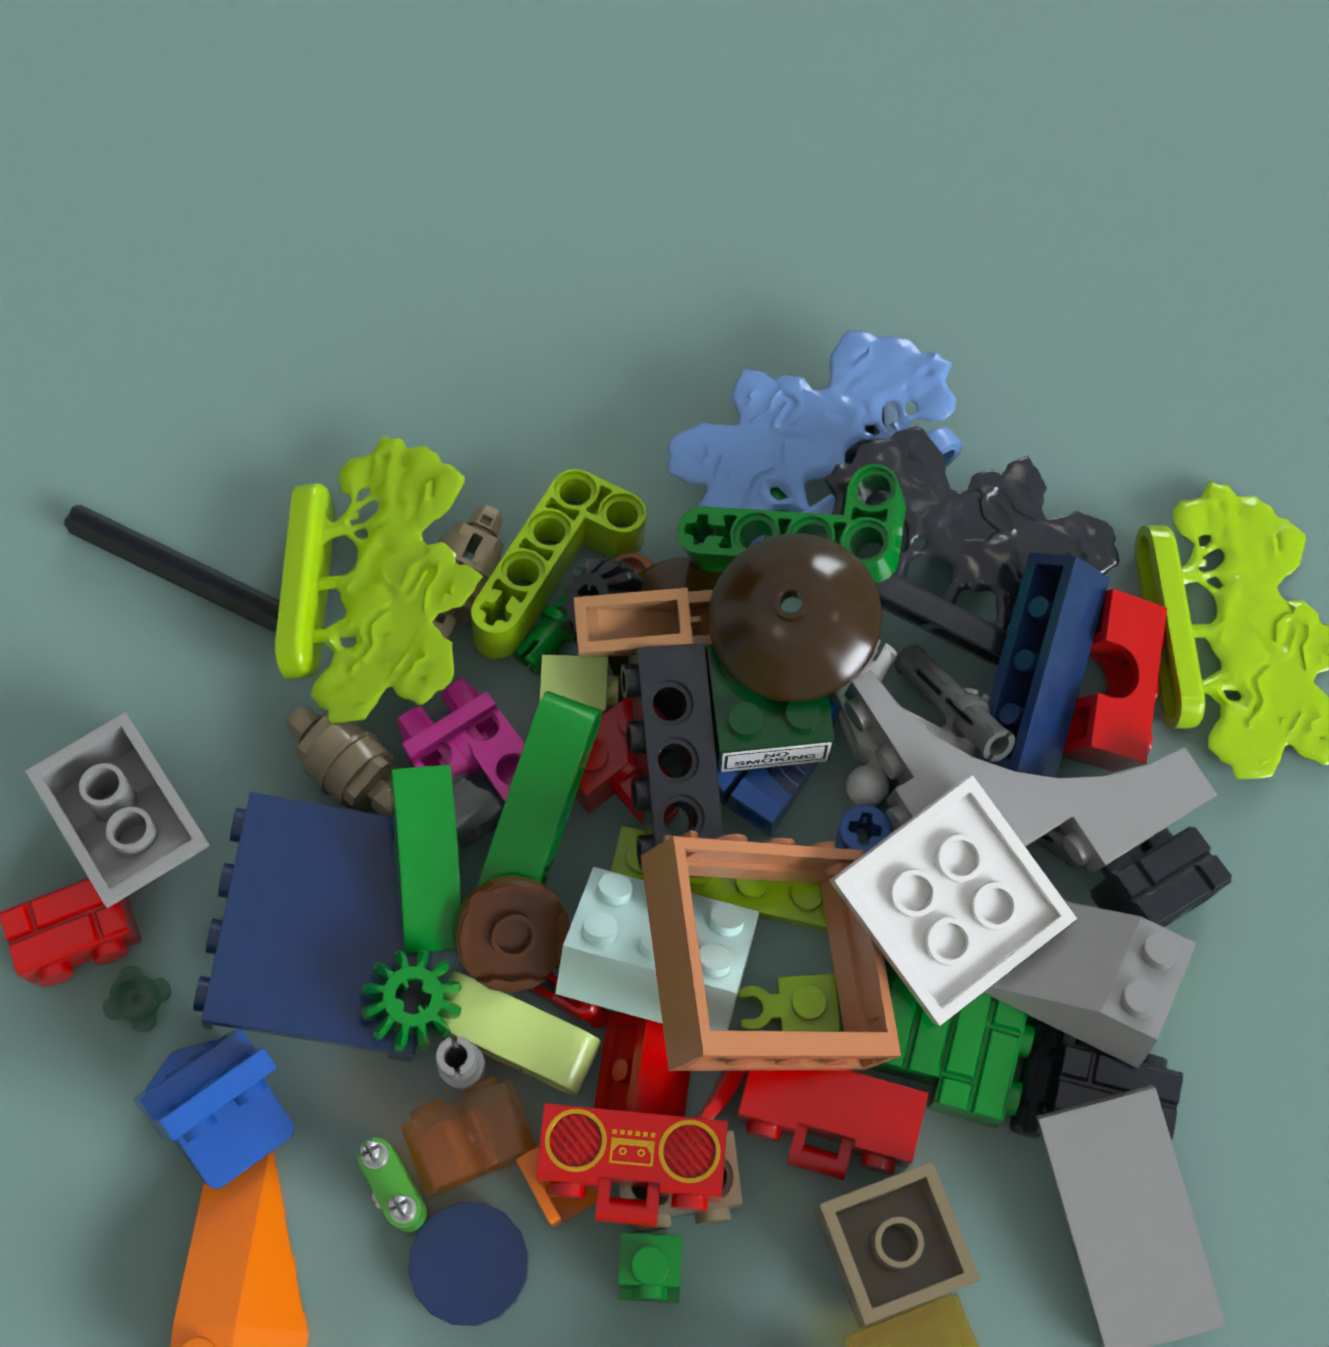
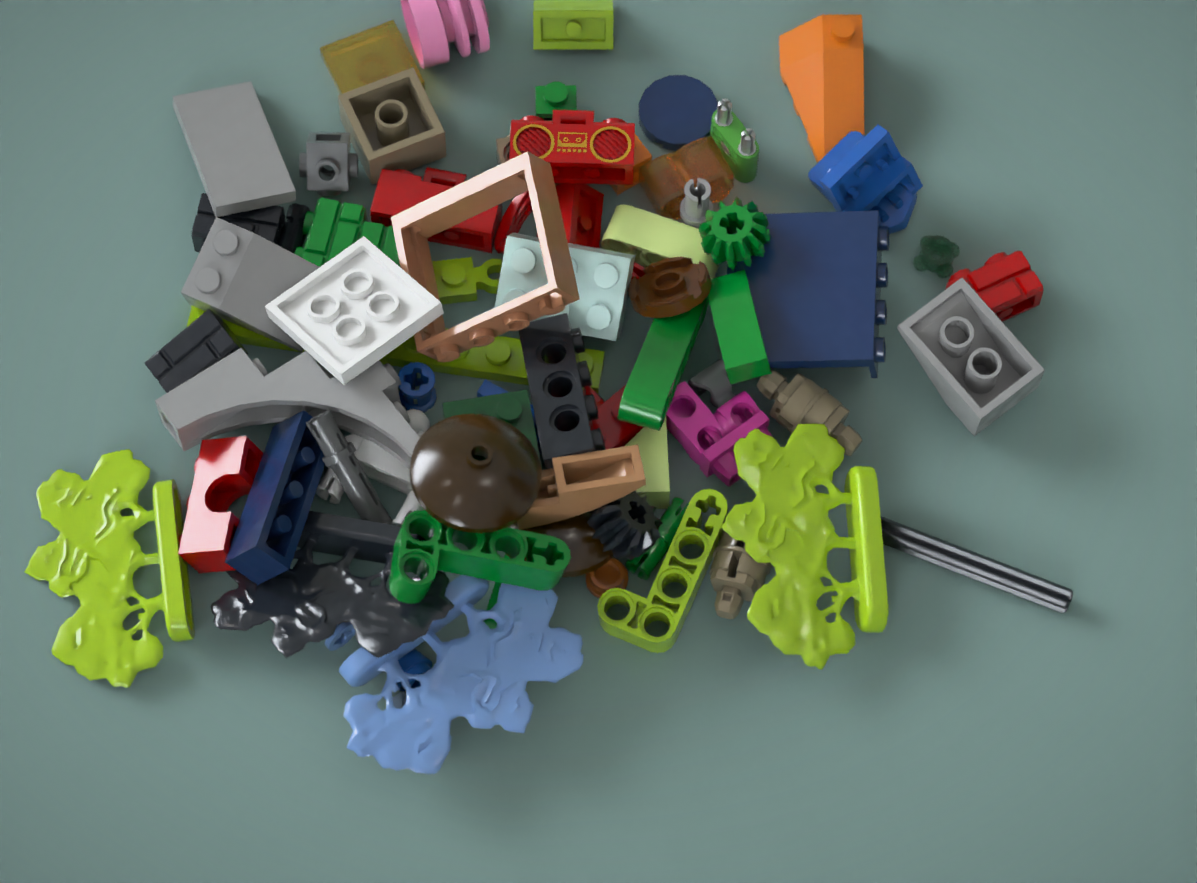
camera: 175 degrees right, 5 degrees down
(989, 1189) = (328, 163): none -> dark grey brick

